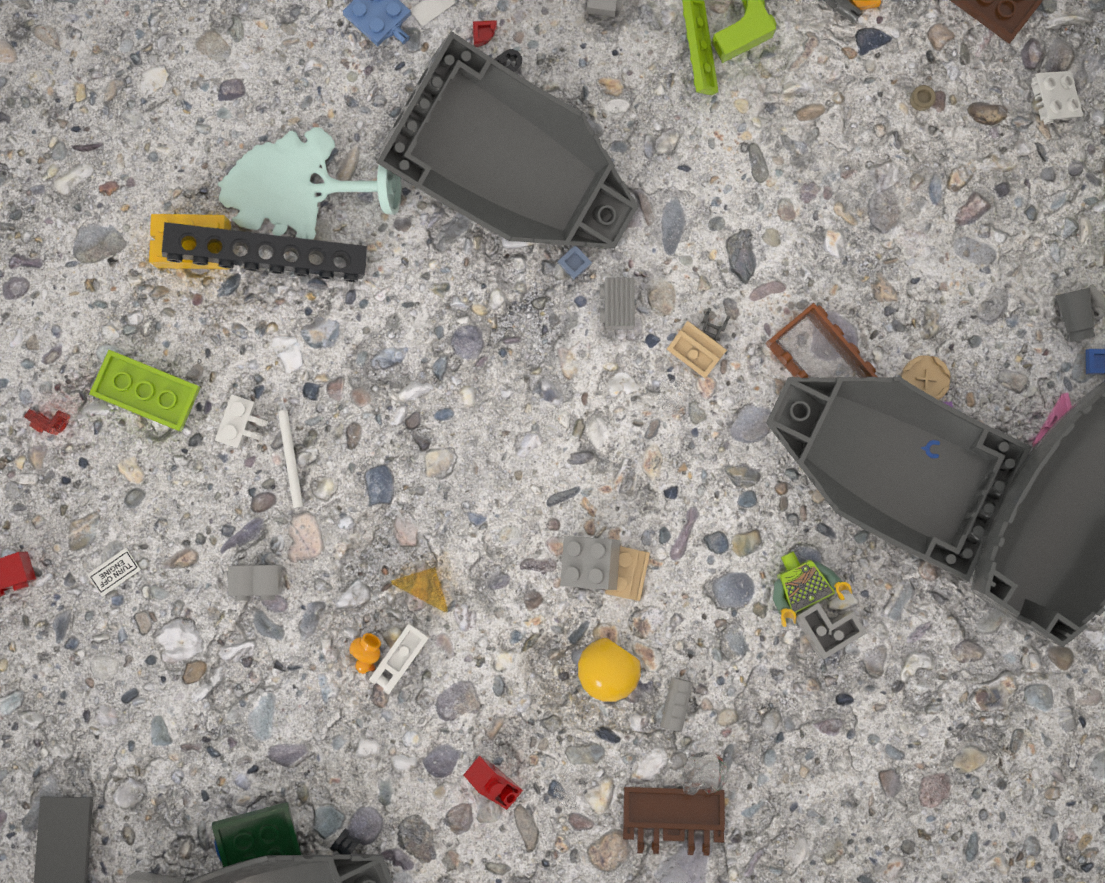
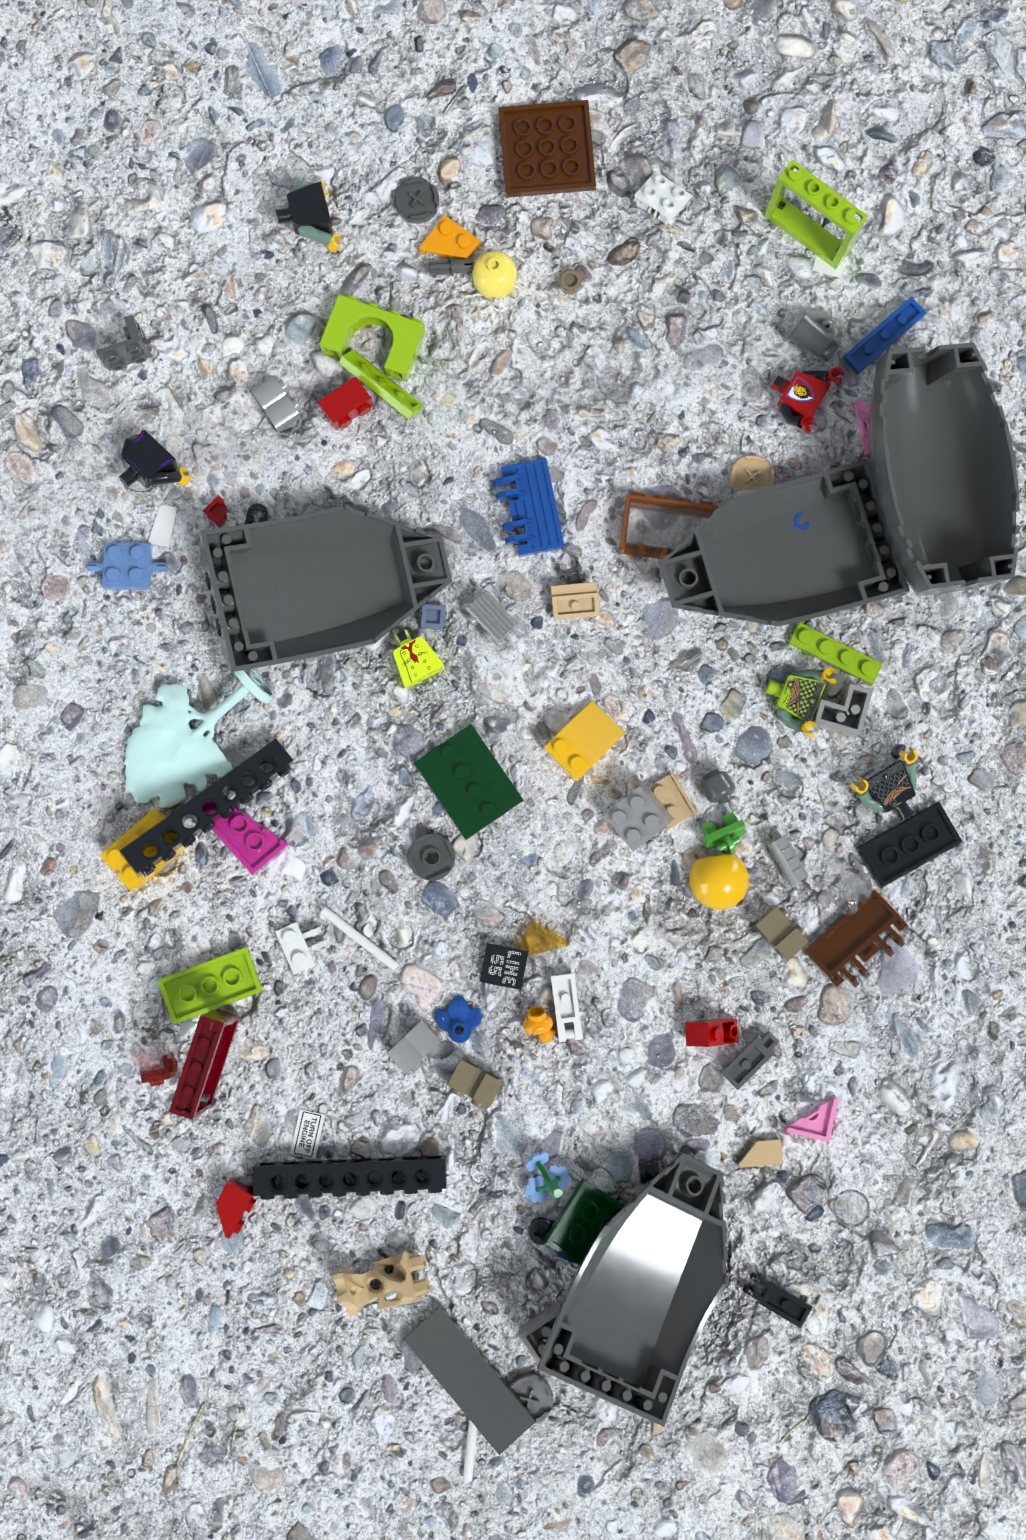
camera: 40 degrees left, 0 degrees up
(37, 726) = (356, 1292): none -> tan hips
(44, 585) = (266, 1188): none -> black brick
(80, 444) = (204, 1063): none -> dark red window
(224, 808) = (539, 1225): none -> black wheel
(261, 780) = (556, 1178): none -> light blue plant
(274, 304) = (247, 839): none -> dark pink wing
(275, 651) = (475, 1083): none -> dark tan brick
(309, 587) = (458, 1016): none -> blue plate
(380, 582) = (504, 966): none -> black sticker
(397, 434) = (444, 862): none -> dark grey plate
(484, 415) = (468, 781): none -> dark green plate
(503, 832) = (750, 1059): none -> dark grey hinge
(529, 283) = (415, 659): none -> neon yellow torso
(602, 465) = (583, 741): none -> yellow slope
(617, 756) = (780, 933): none -> dark tan brick
(644, 641) = (725, 837): none -> bright green hips
(659, 37) = (346, 403): none -> red brick
(674, 596) = (717, 787): none -> dark grey head
(729, 249) = (534, 508): none -> blue hinge
(785, 781) = (909, 844): none -> black tile
(811, 722) = (890, 786): none -> torso
(864, 577) = (835, 654): none -> lime plate
(867, 39) = (494, 274): none -> light yellow cylinder
(1027, 351) = (804, 394): none -> torso

